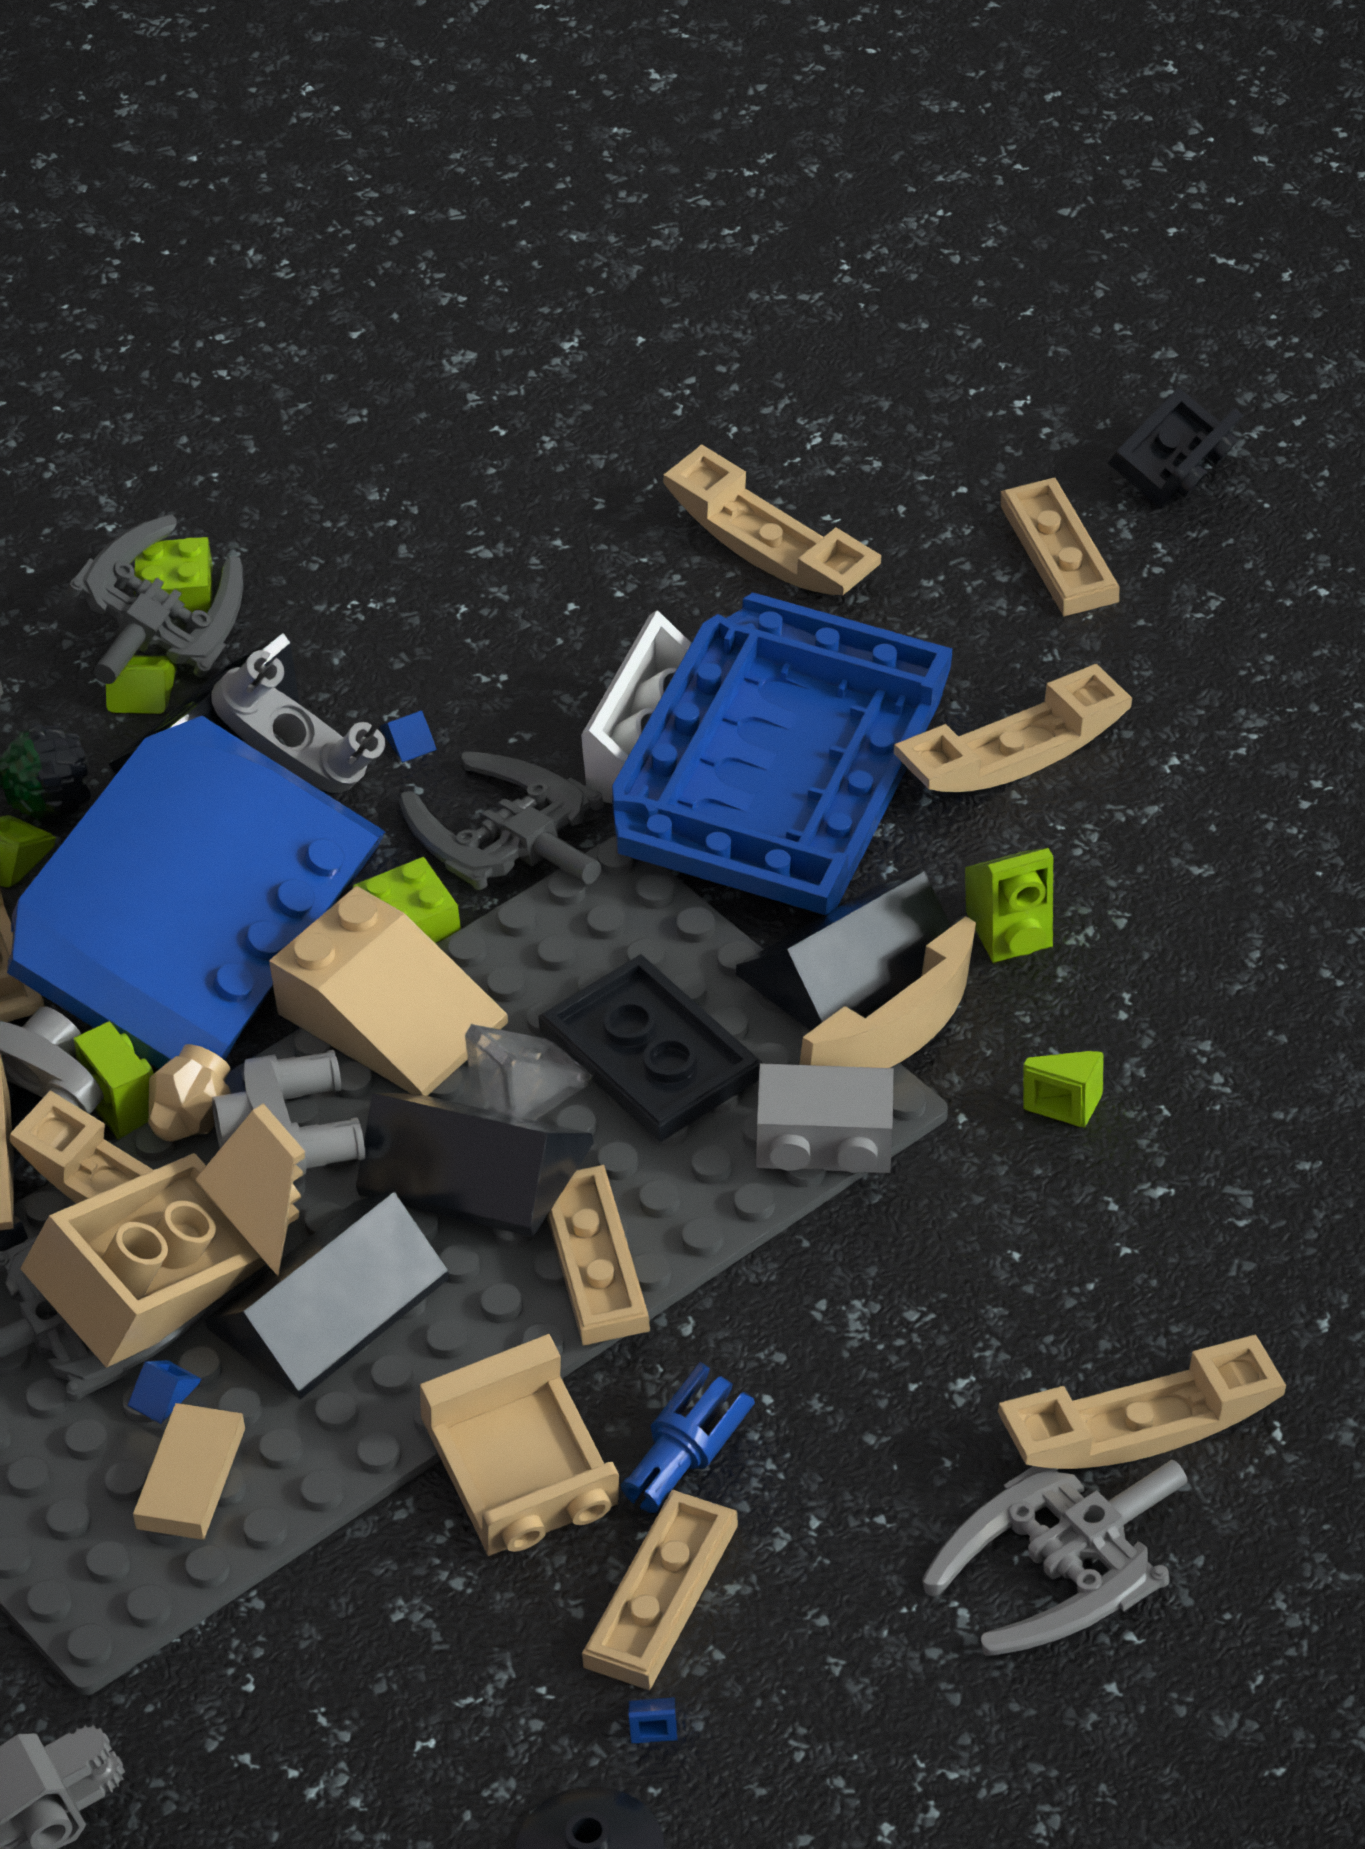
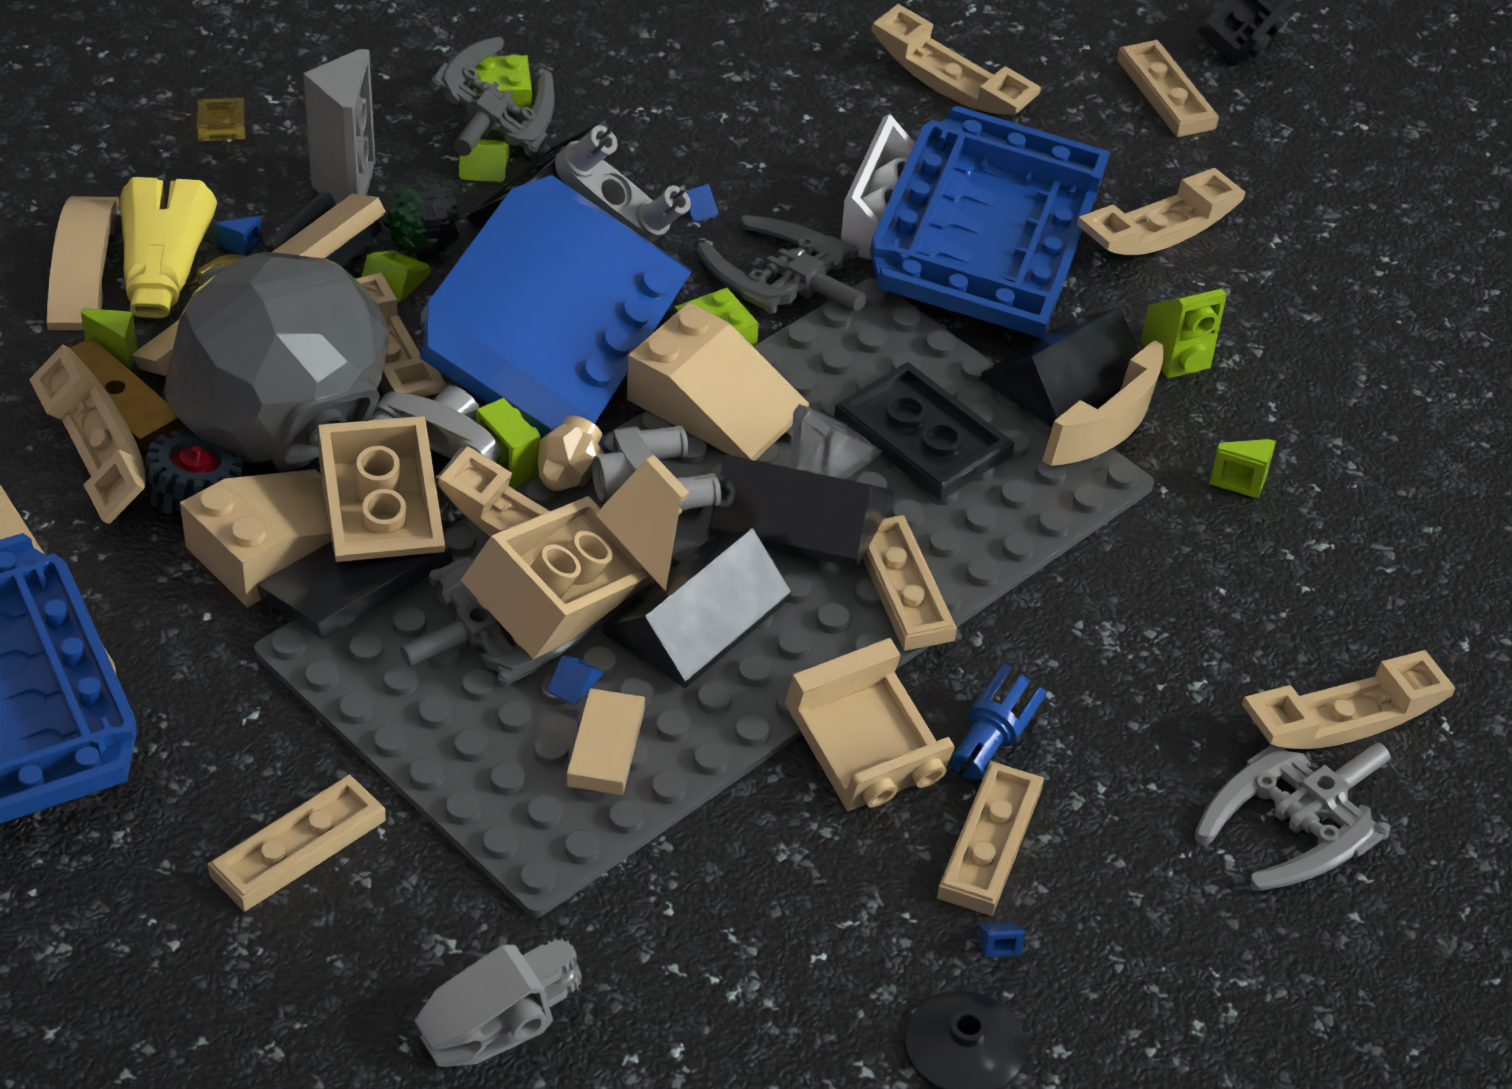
camera: 10 degrees left, 0 degrees up
(824, 1118) = (1071, 483): light grey brick -> none

